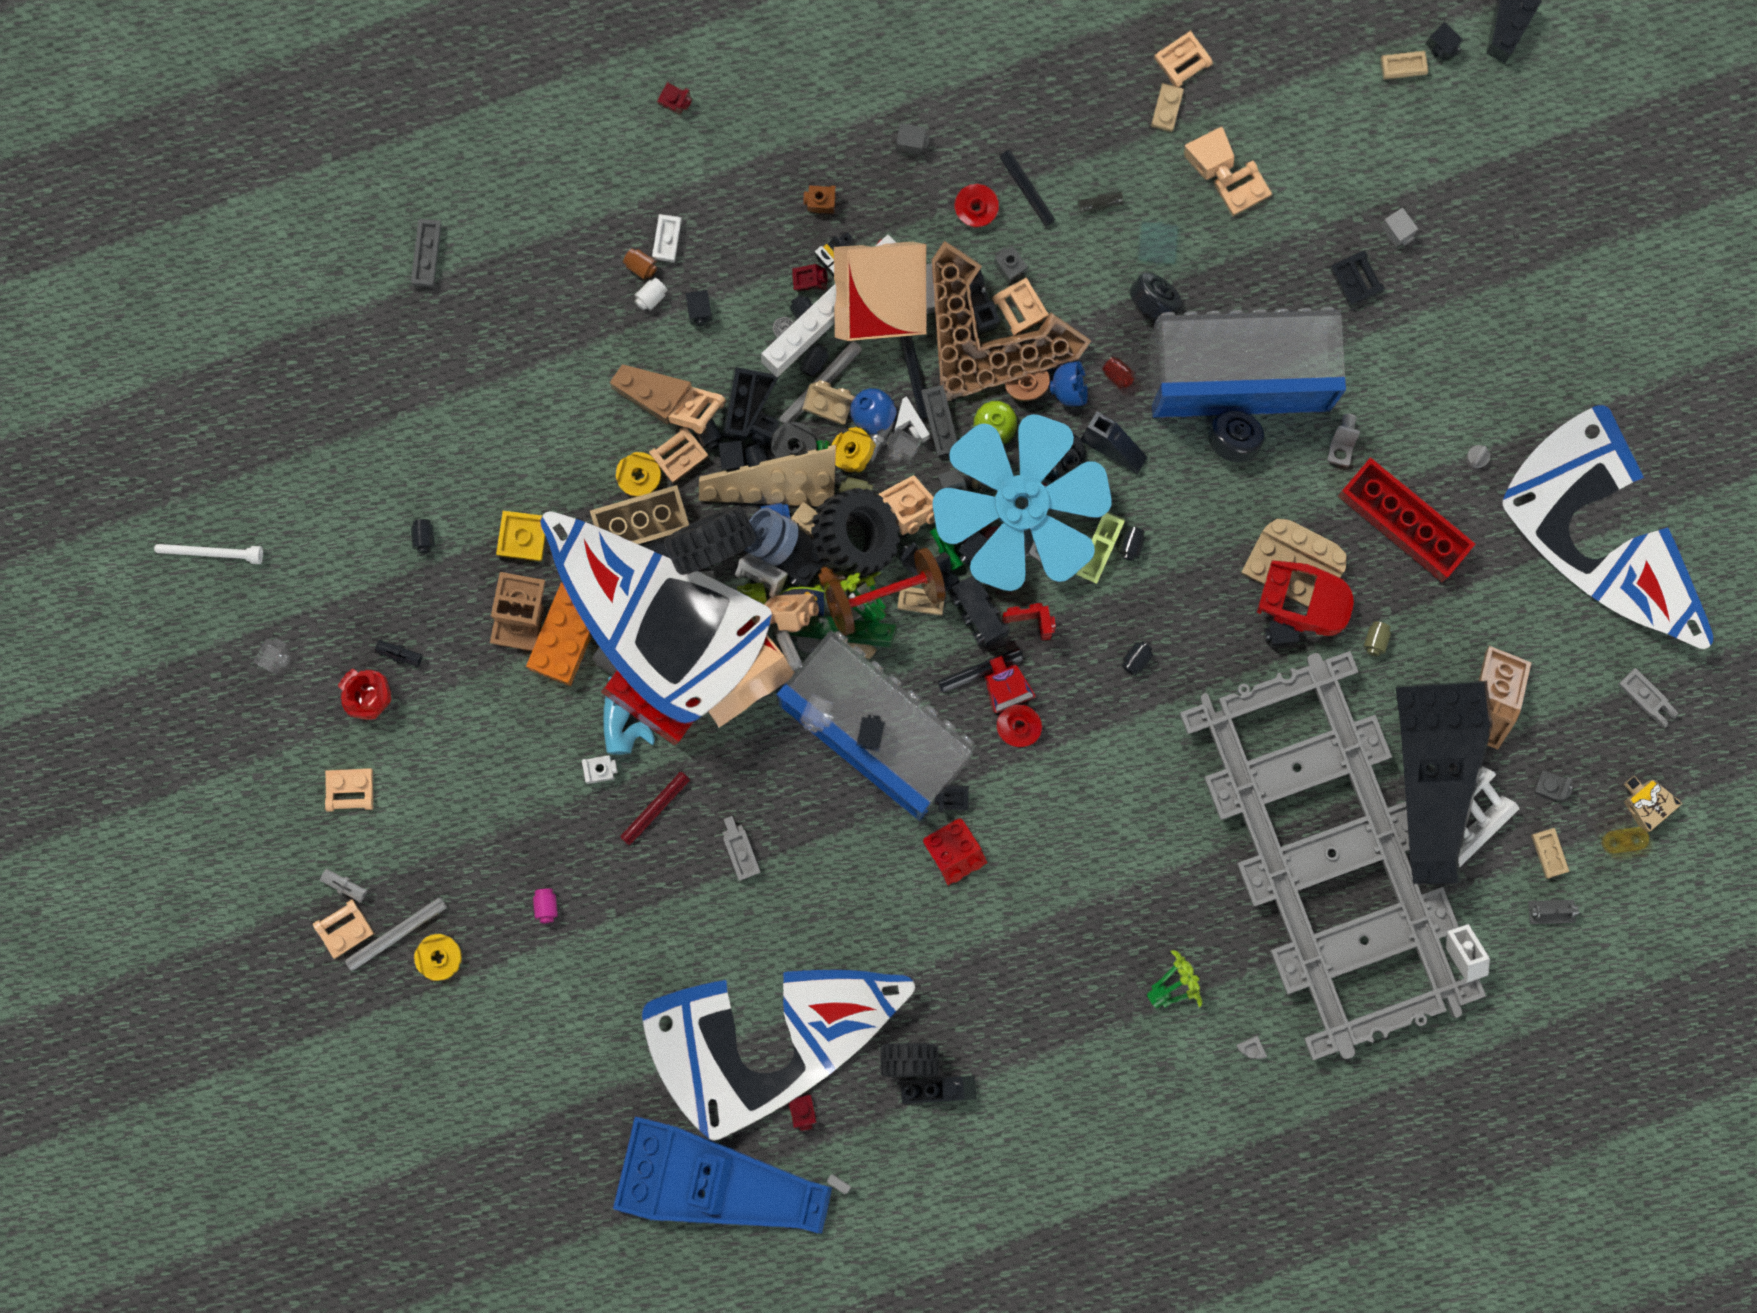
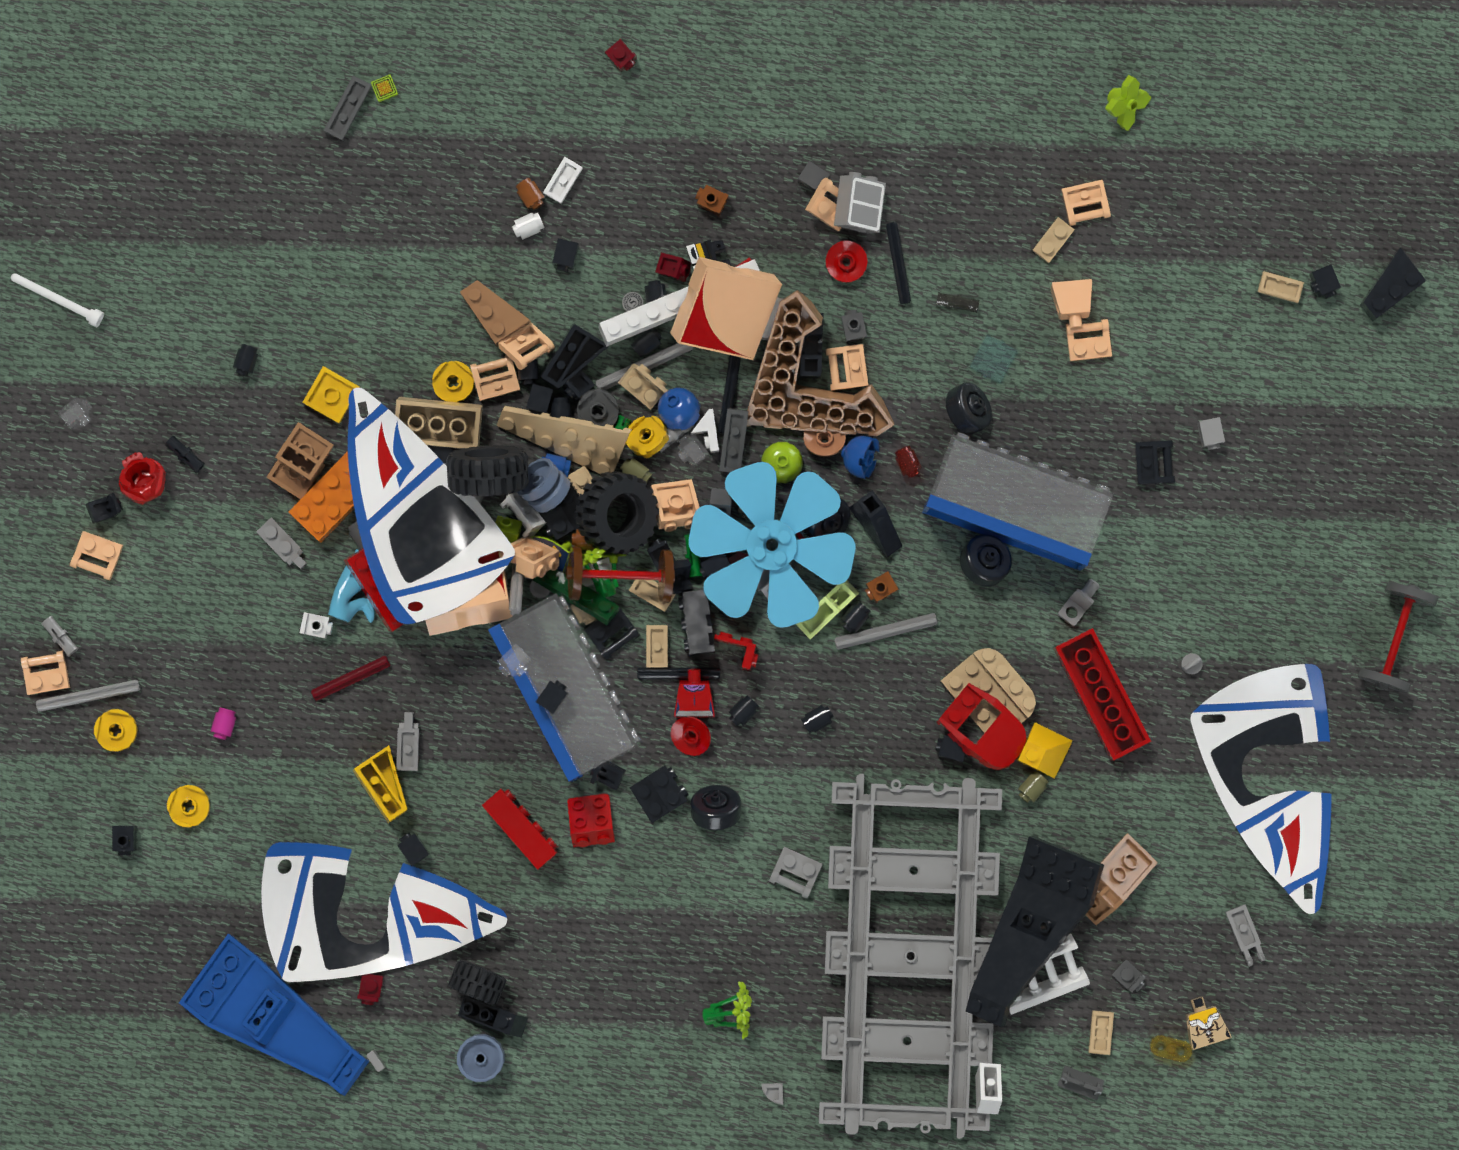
camera: 25 degrees right, 5 degrees up
(338, 739) = (104, 508): none -> black bracket
(454, 220) = (384, 88): none -> tile
(490, 1064) = (124, 839): none -> black brick
(531, 702) = (281, 543): none -> light grey hinge
(533, 994) = (199, 801): none -> yellow plate
(731, 900) = (382, 784): none -> yellow wedge
(788, 952) = (413, 848): none -> black brick
(887, 886) = (520, 829): none -> red brick
(889, 657) = (601, 632): none -> black plate
(936, 163) = (822, 206): none -> light nougat plate
(939, 1149) = (489, 1048): none -> sand blue wheel
(948, 651) = (656, 646): none -> tan plate
(966, 144) = (859, 203): none -> light grey brick
(1011, 796) = (659, 793): none -> black plate
(1060, 680) = (743, 711): none -> black brick
(1074, 786) = (716, 807): none -> black wheel
(1144, 504) = (881, 587): none -> dark orange brick
(1167, 545) = (886, 631): none -> light grey axle
(1180, 811) = (797, 865): none -> light grey plate
(1373, 598) = (1044, 750): none -> yellow slope
(1663, 302) = (1411, 594): none -> dark grey piece

